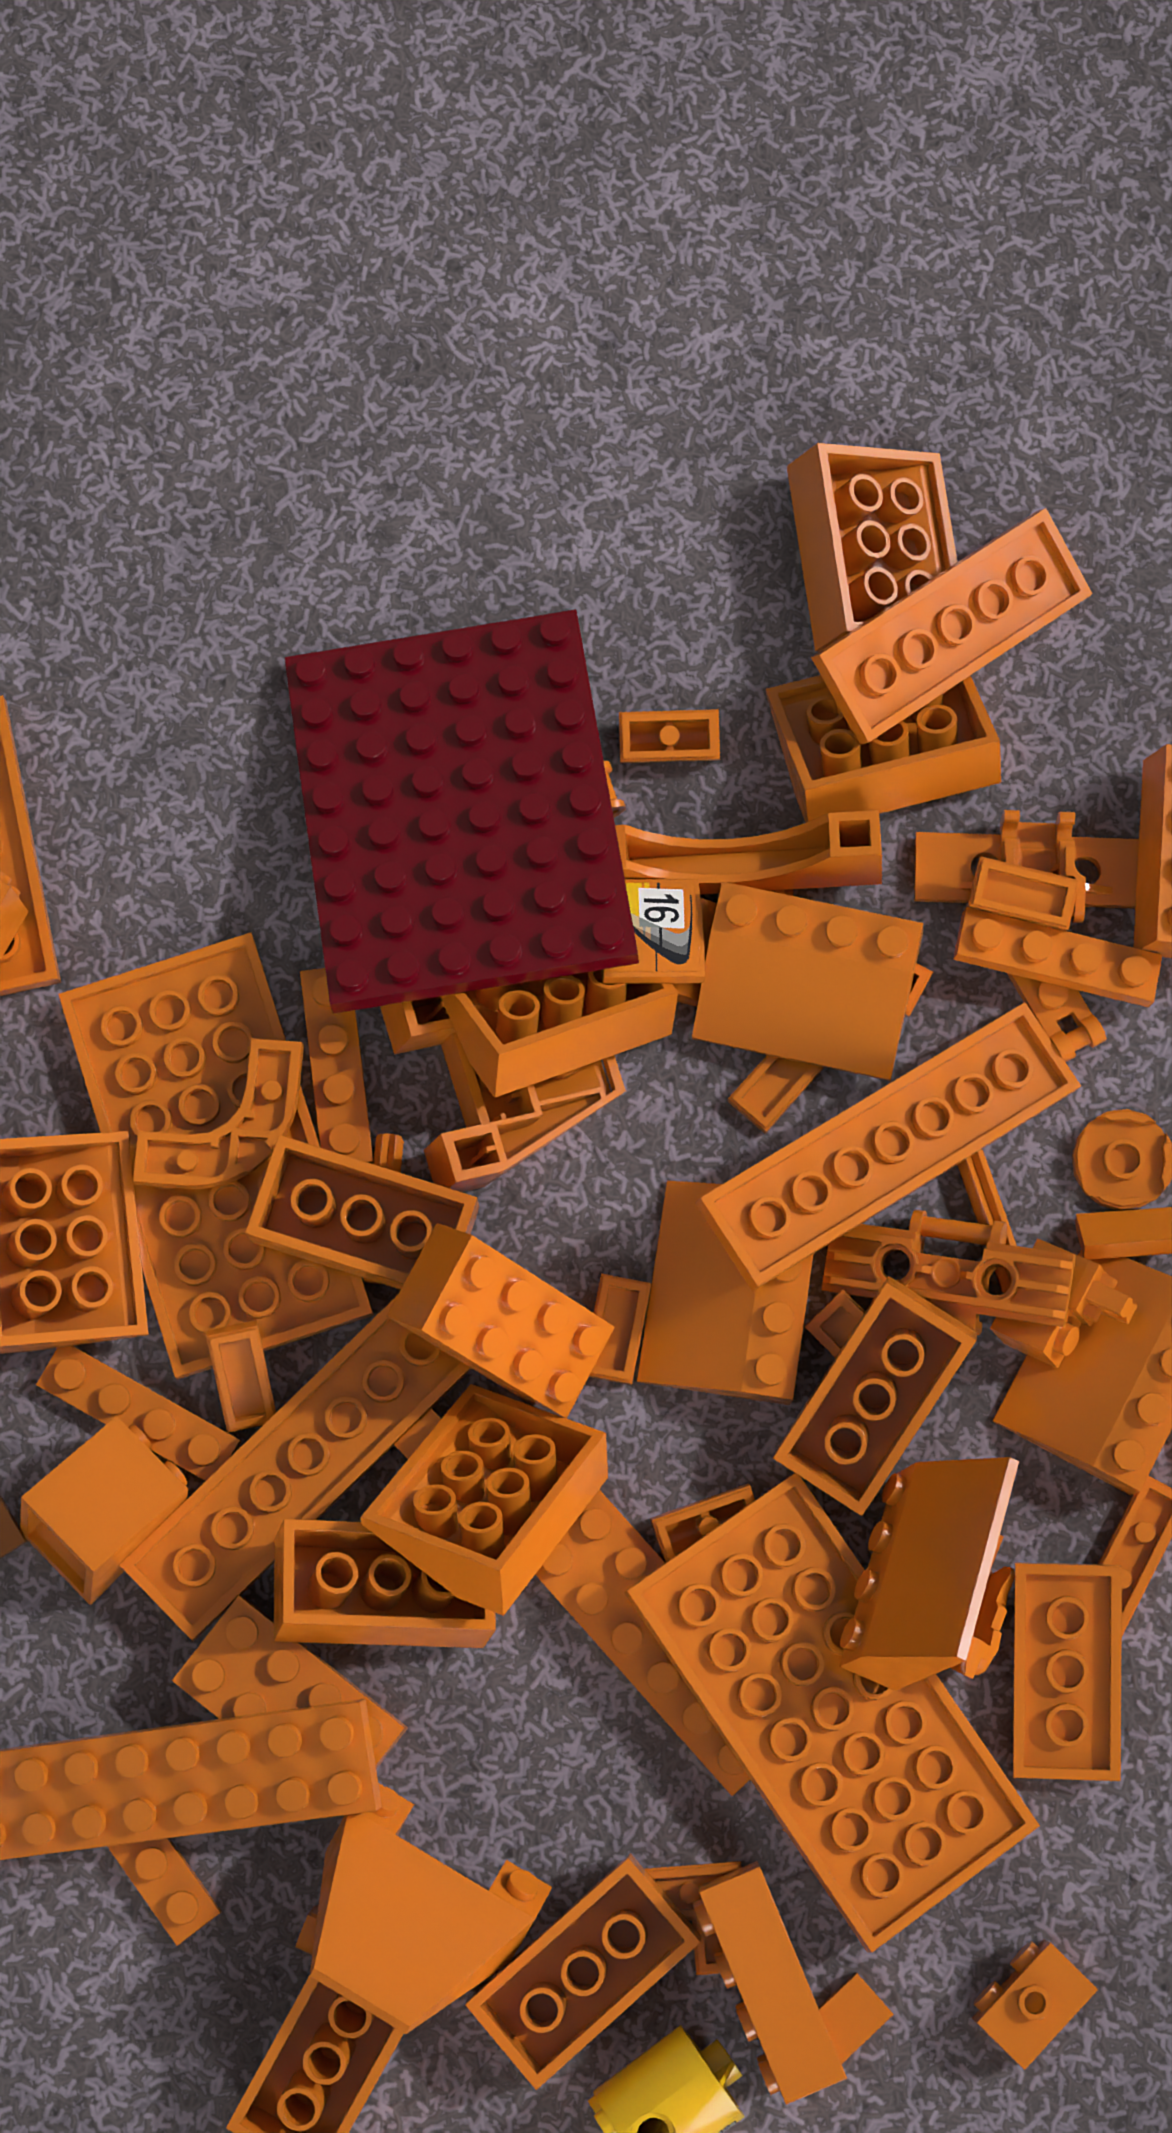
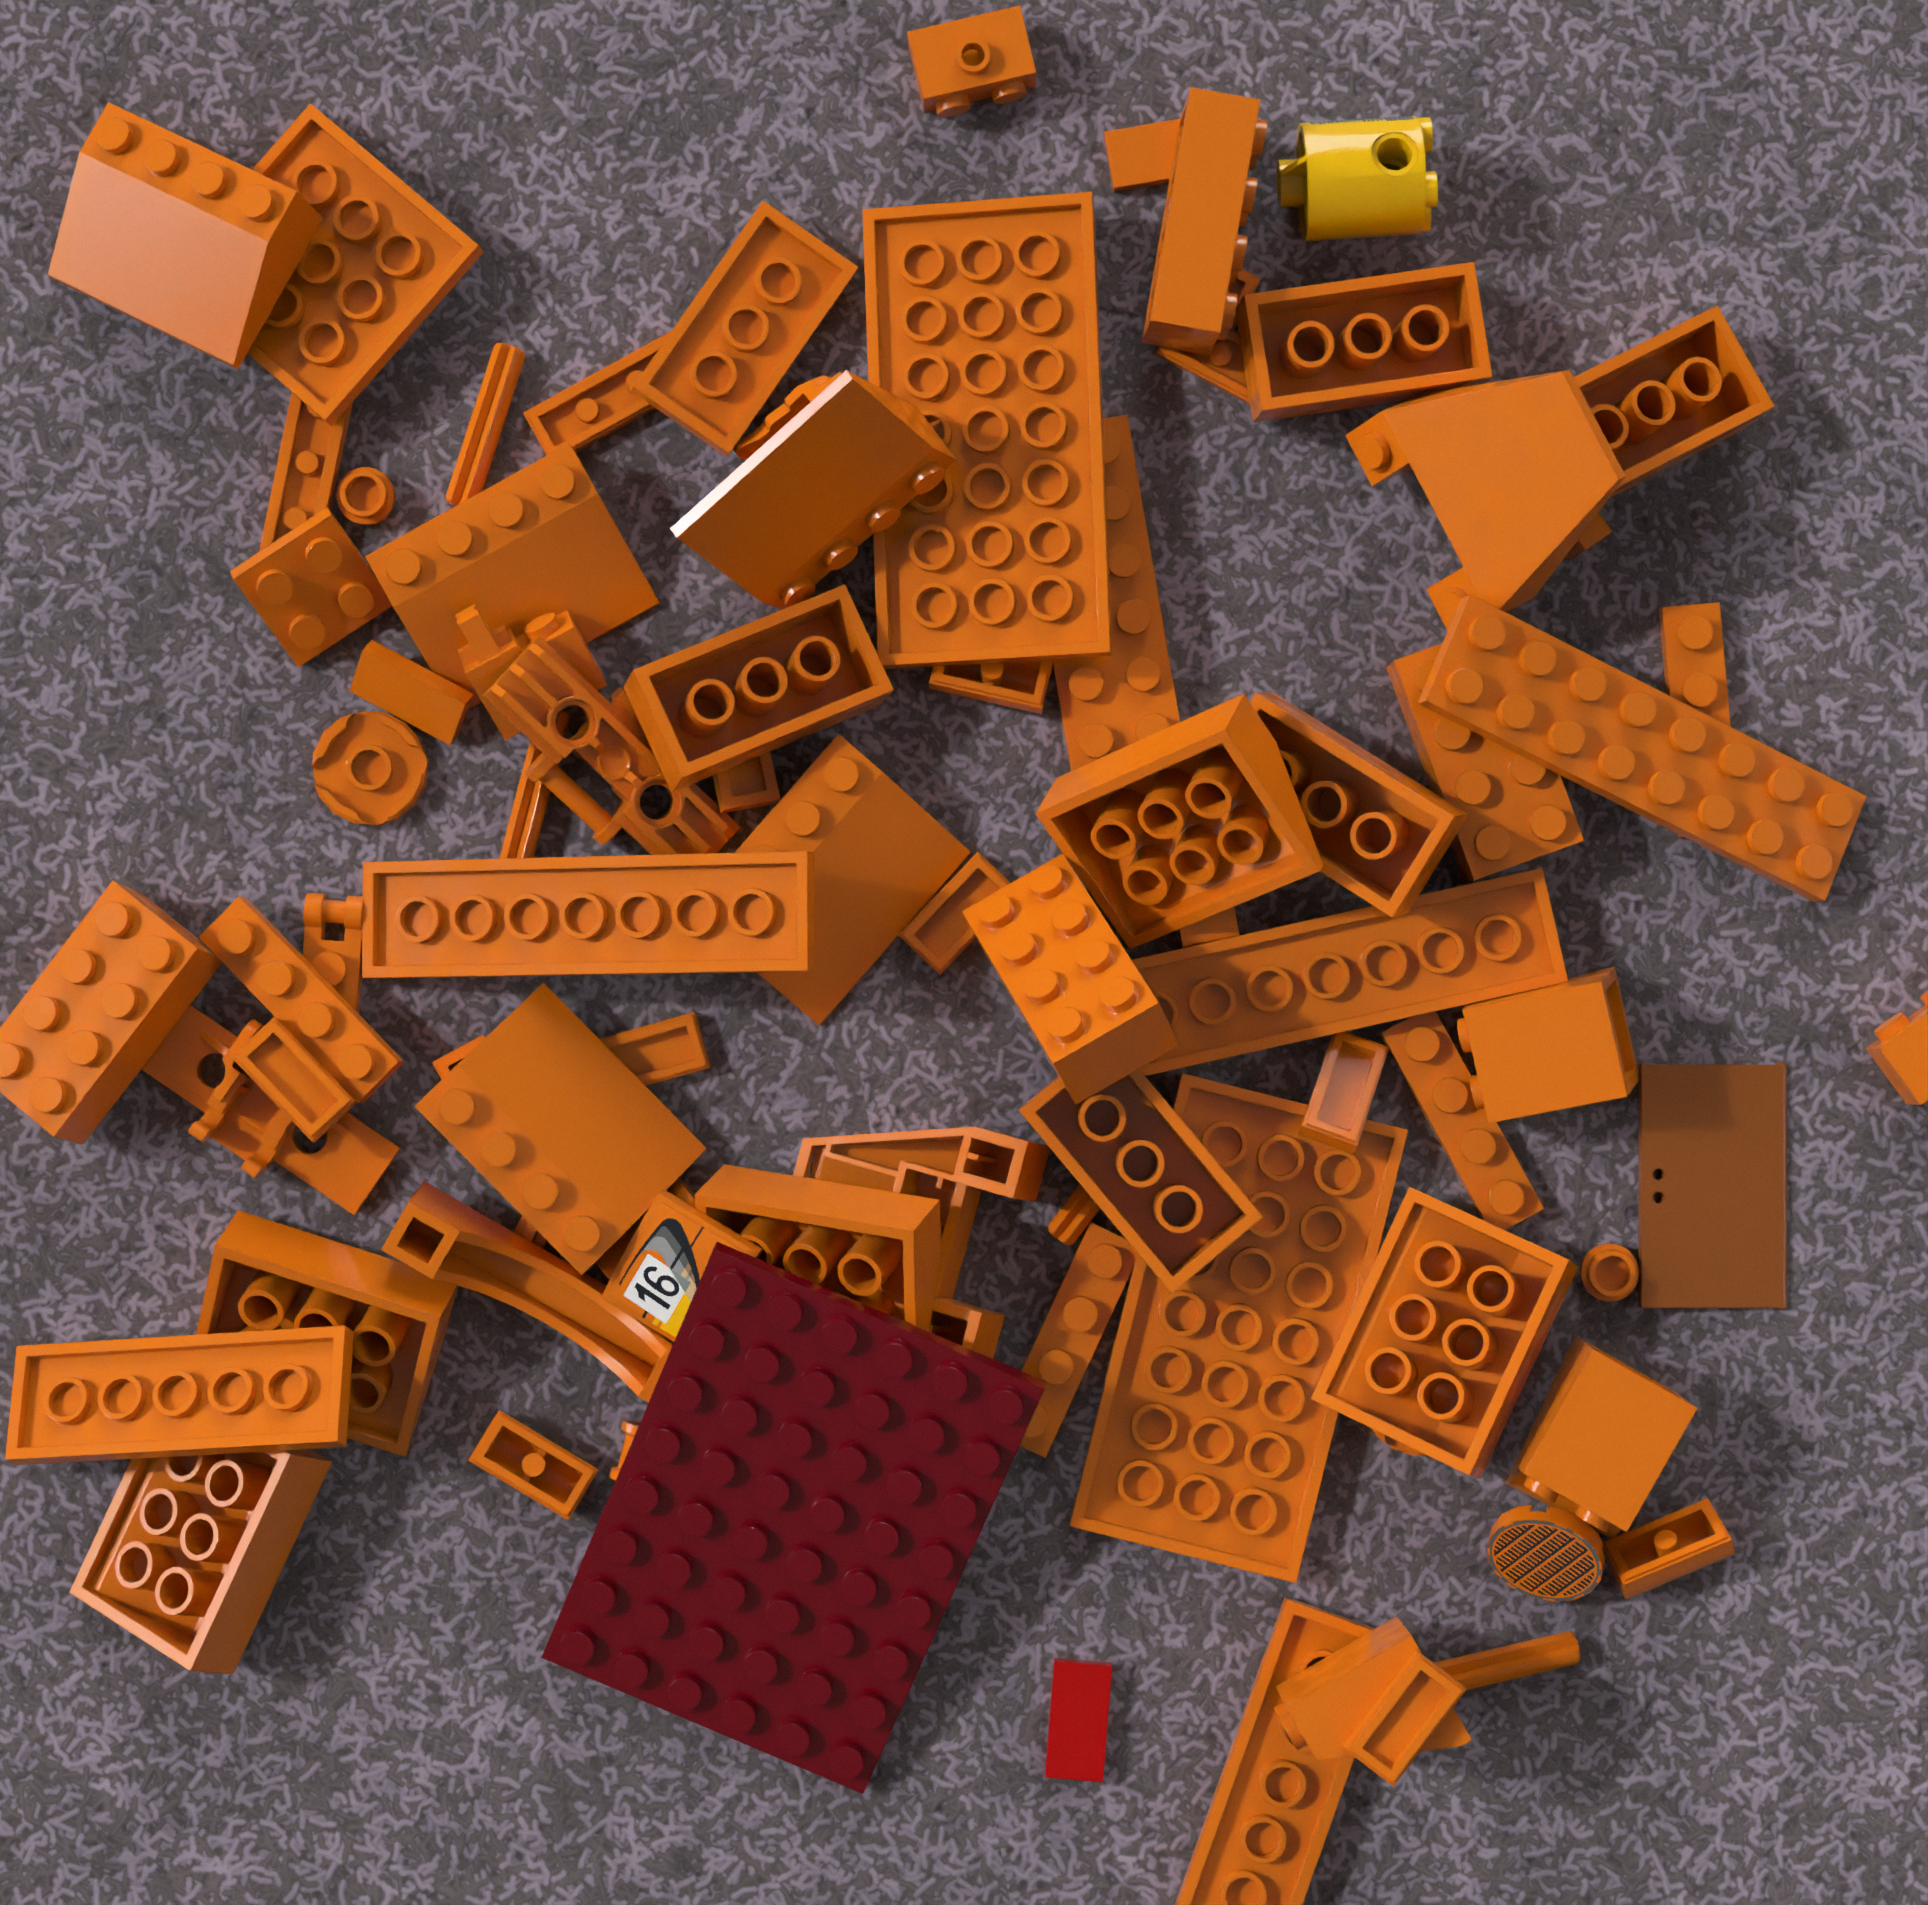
camera: 150 degrees left, 10 degrees up
(160, 803) = (1078, 1719): none -> red tile
(242, 1142) = (1204, 1317): orange plate -> none

